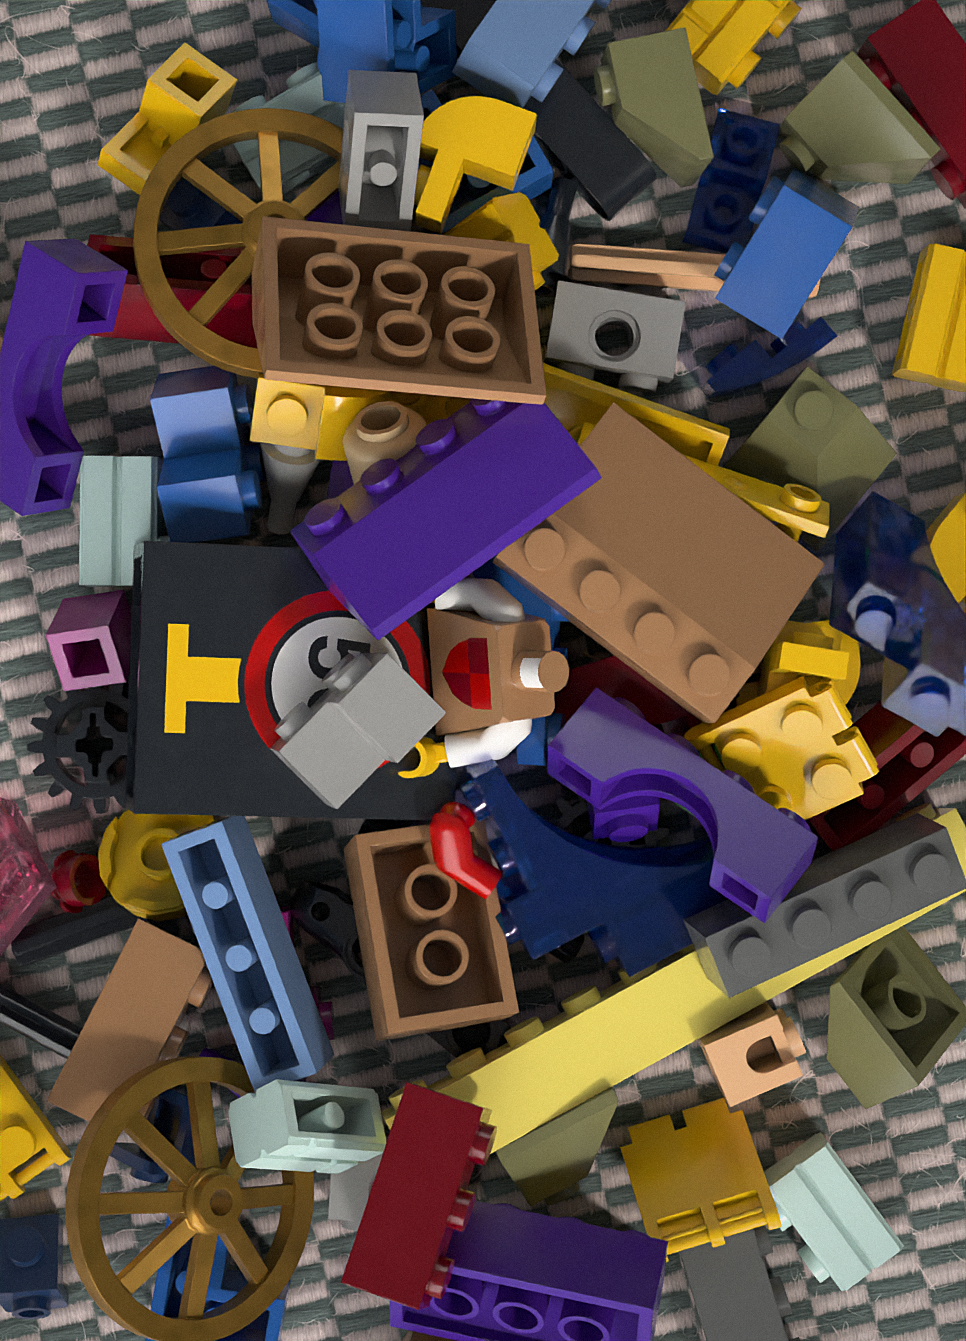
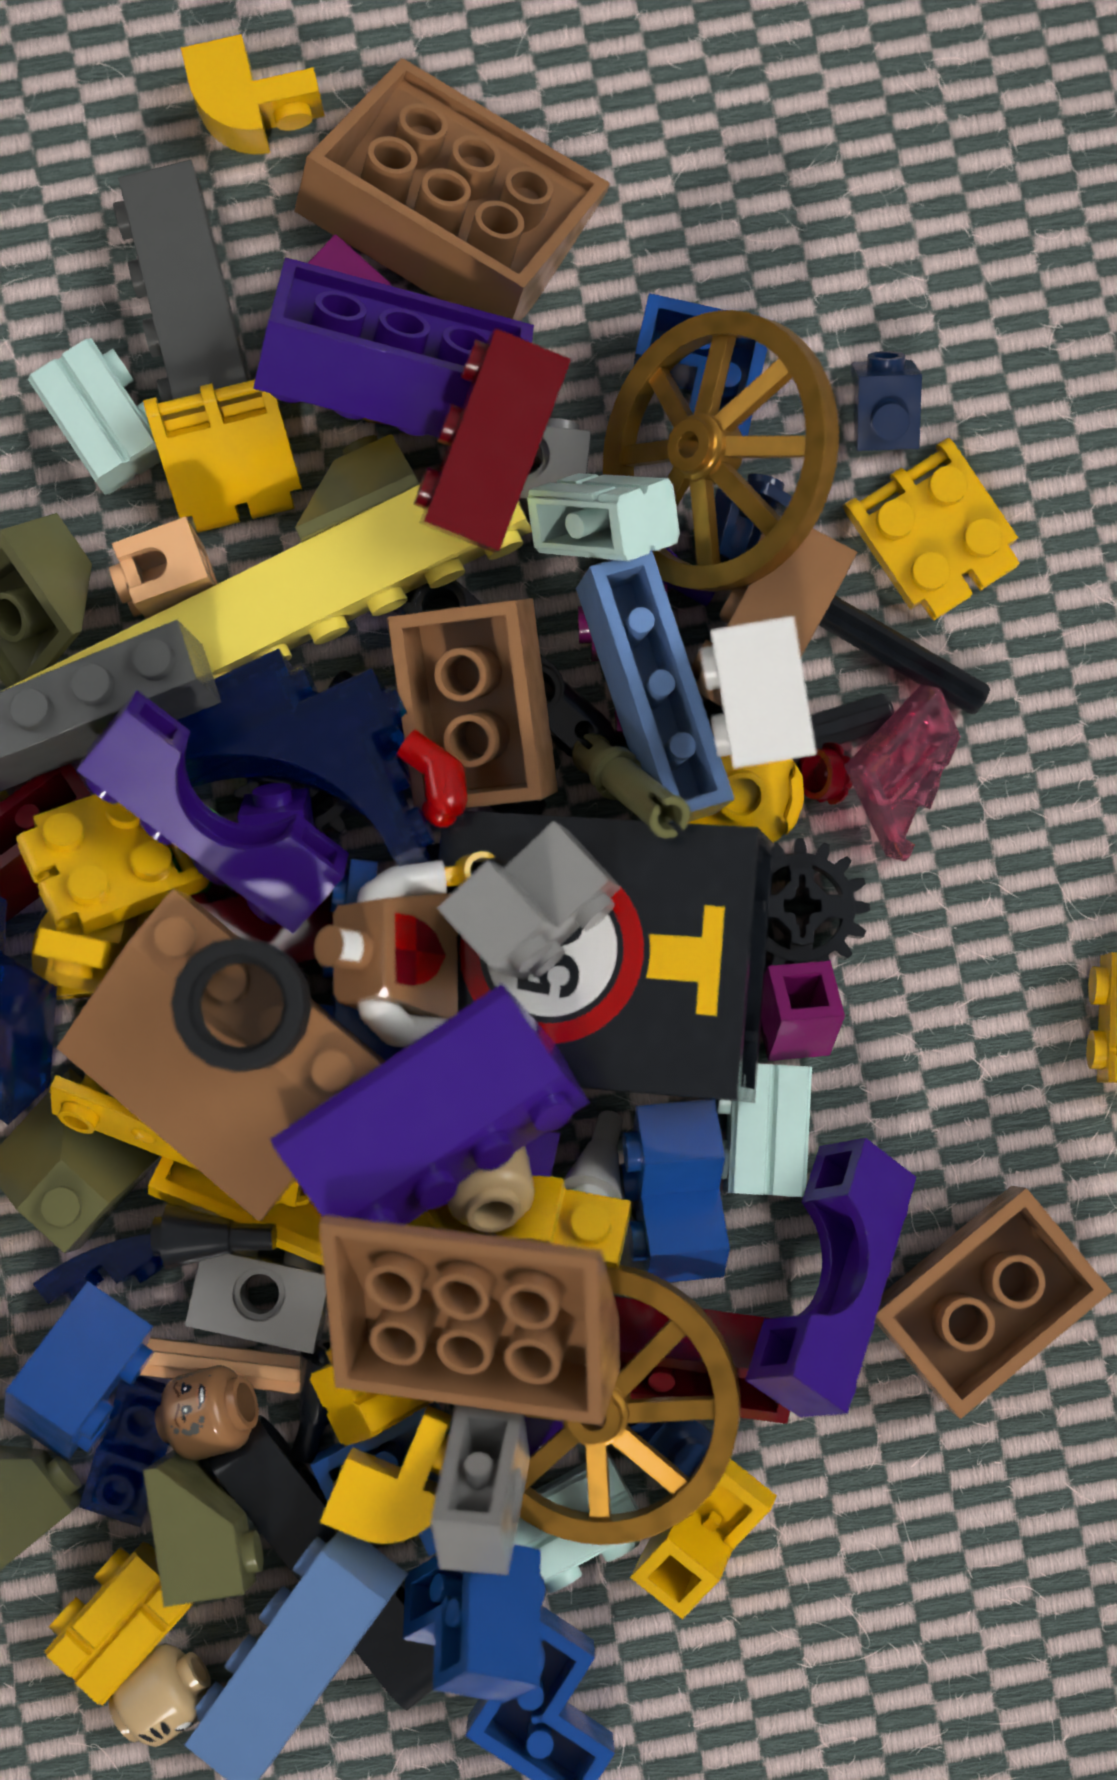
camera: 175 degrees left, 5 degrees down
(135, 947) = (760, 693): none -> white brick
(280, 862) = (620, 777): none -> olive pin
(658, 218) = (207, 1412): none -> medium nougat head
(681, 388) = (192, 1236): none -> black cone
(687, 595) = (189, 993): none -> black tyre

